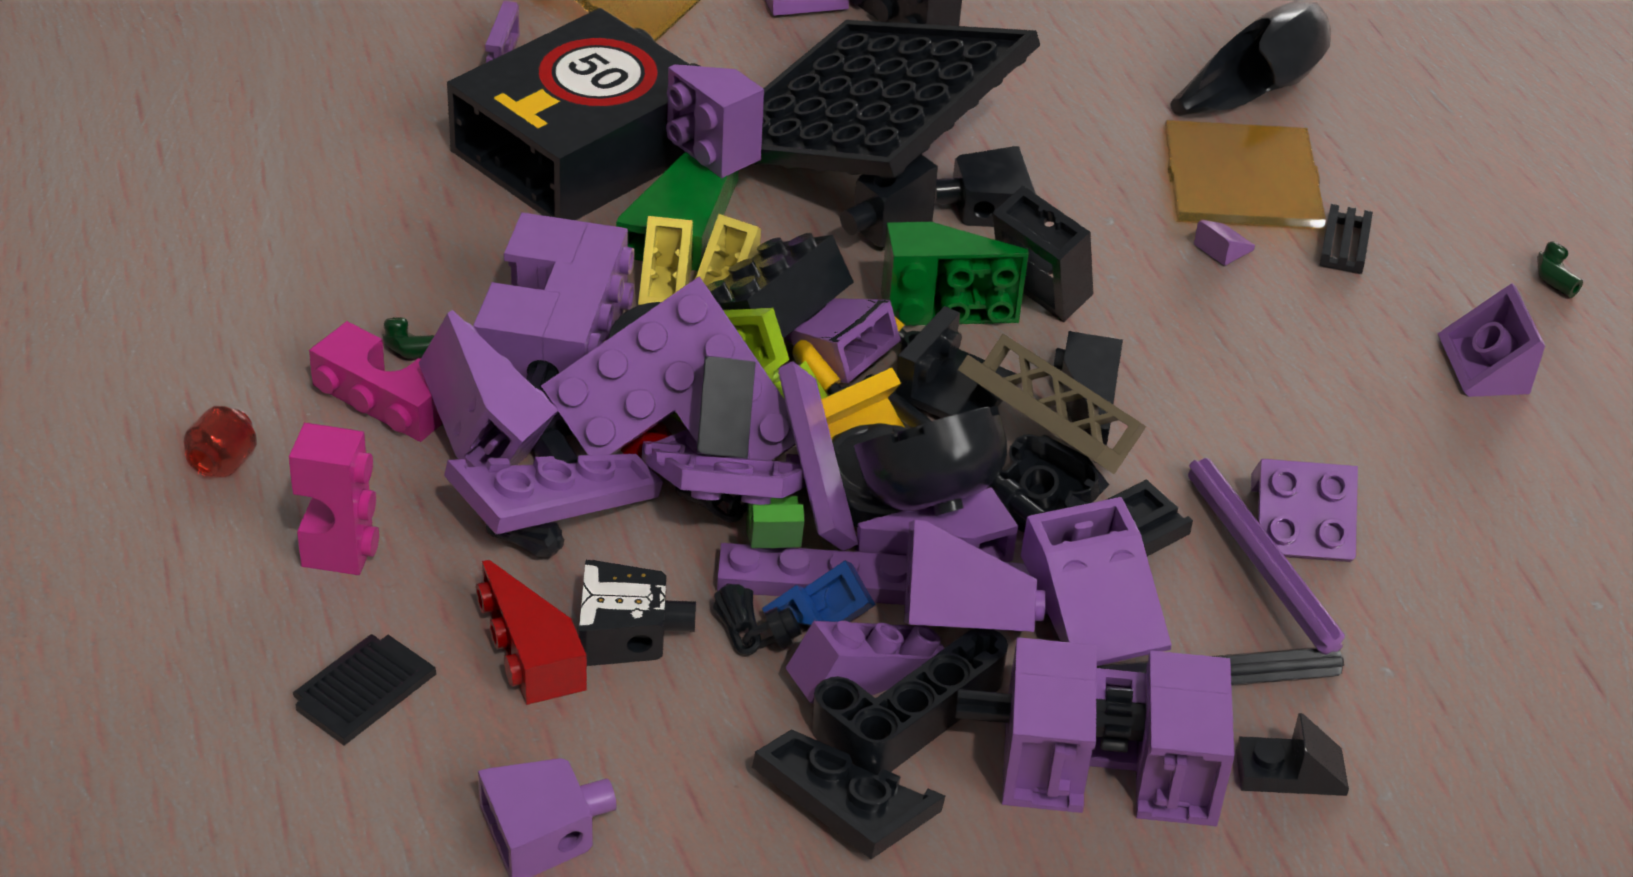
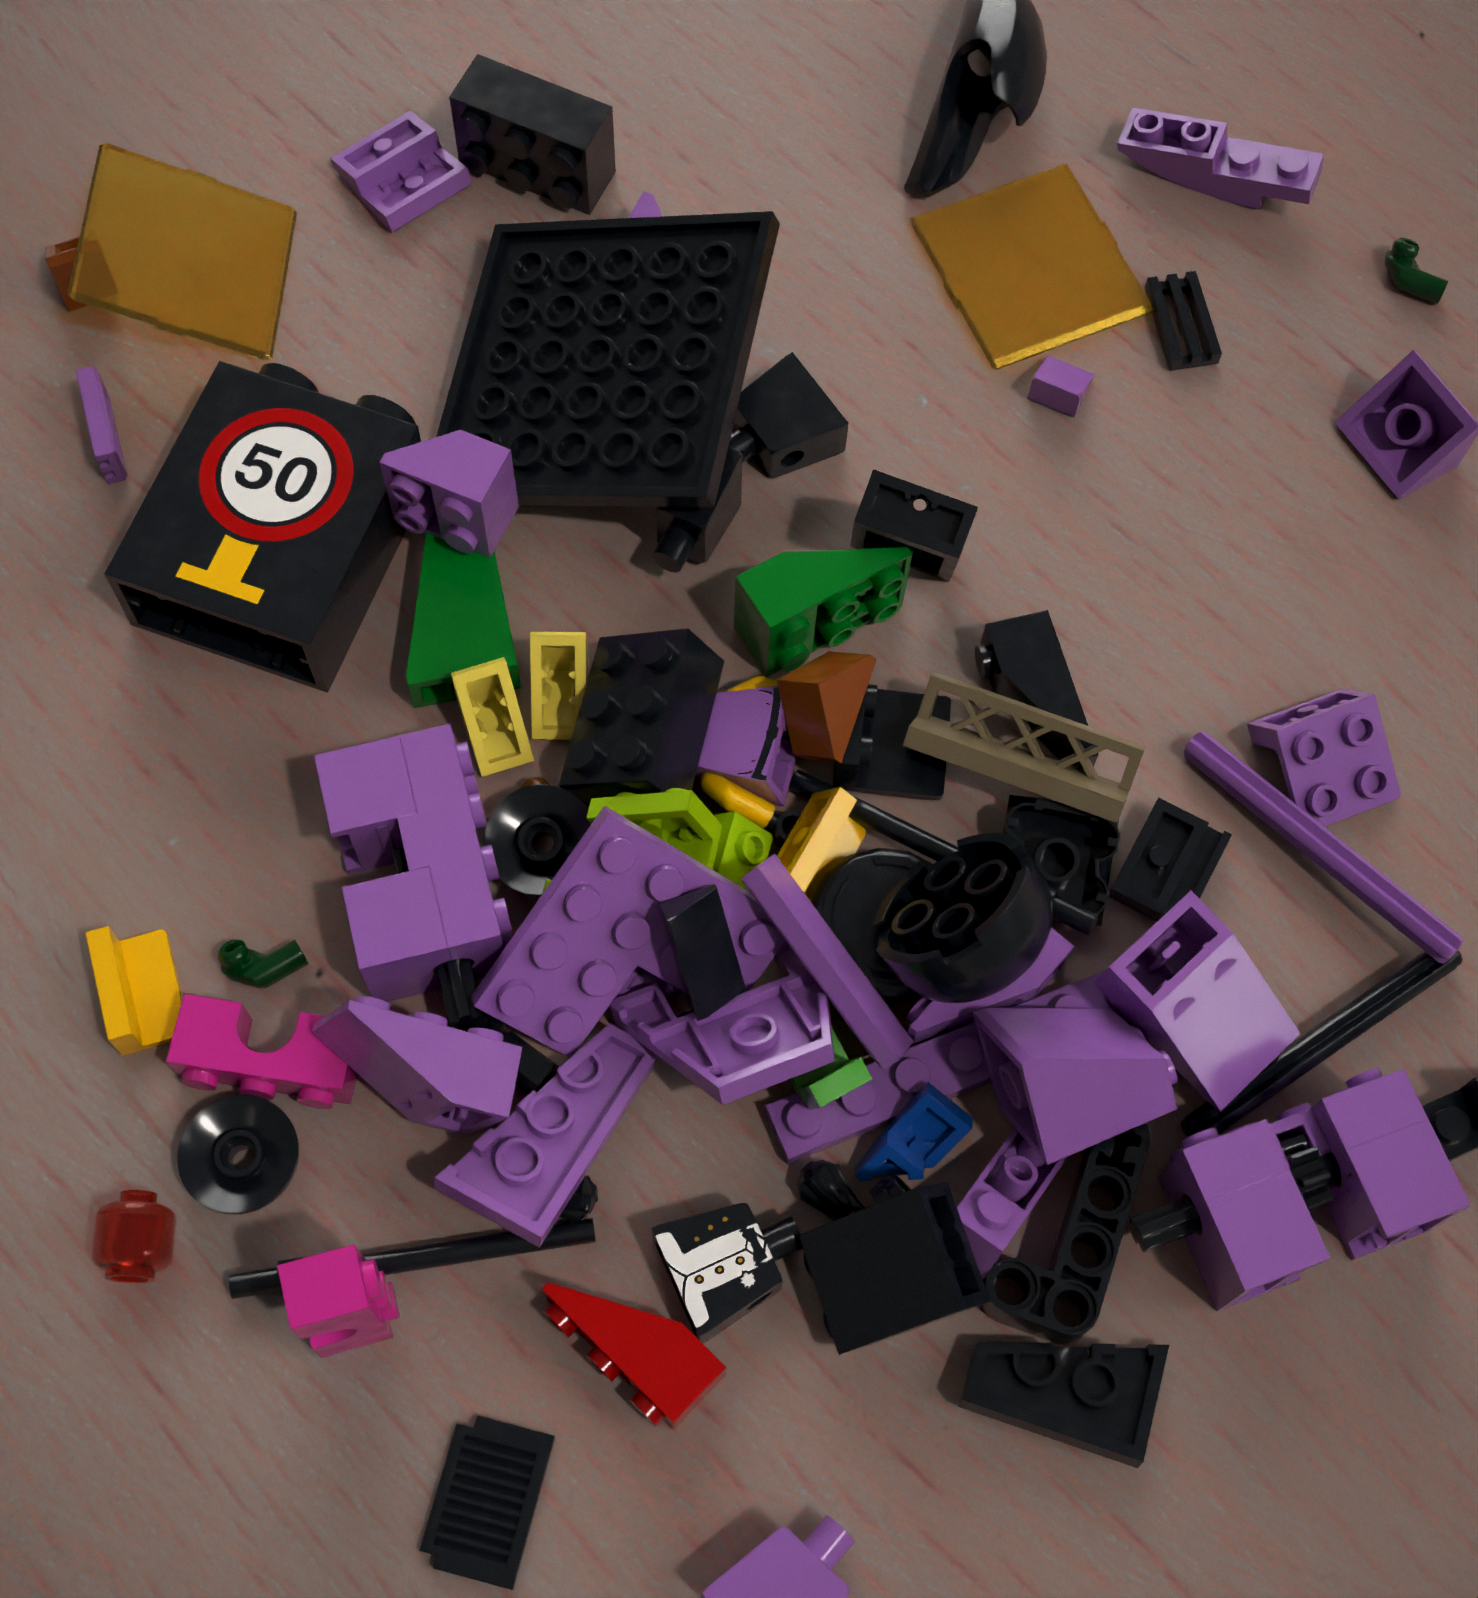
camera: 25 degrees left, 25 degrees up
(311, 317) = (135, 988): none -> yellow panel
(320, 408) = (218, 1135): none -> black dish
(425, 537) = (431, 1255): none -> black bar
(750, 642) = (893, 1267): none -> black brick
(908, 314) = (824, 702): none -> dark orange slope
(1420, 155) = (1207, 161): none -> medium lavender slope

